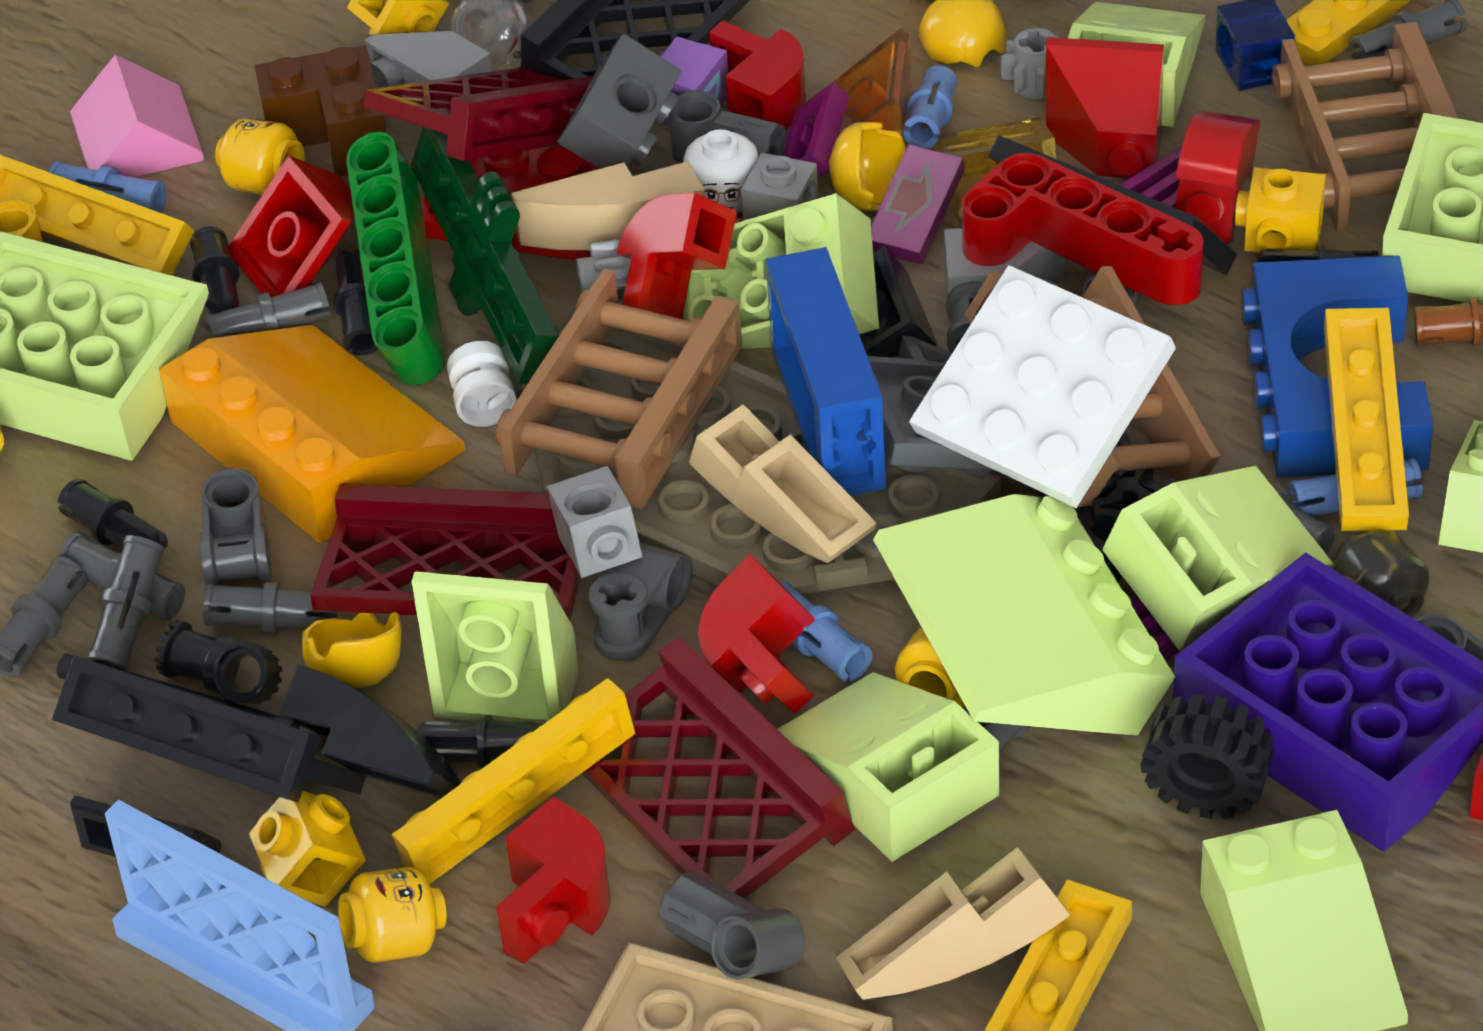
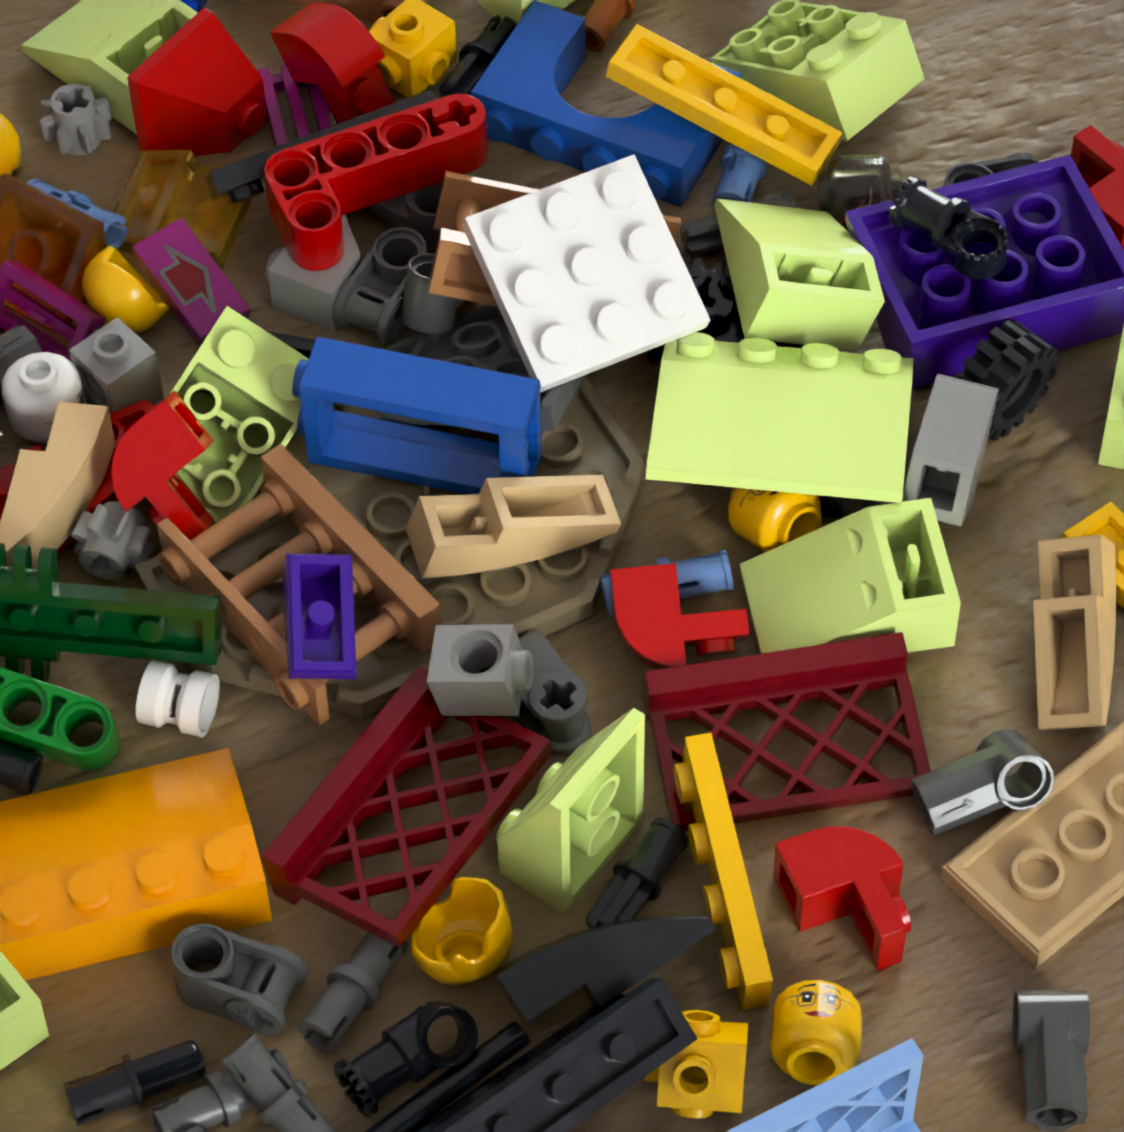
camera: 65 degrees left, 10 degrees up
(571, 395) = (319, 616): none -> dark purple slope
(1077, 746) = (951, 447): none -> light grey slope
(1326, 619) = (951, 227): none -> black connector

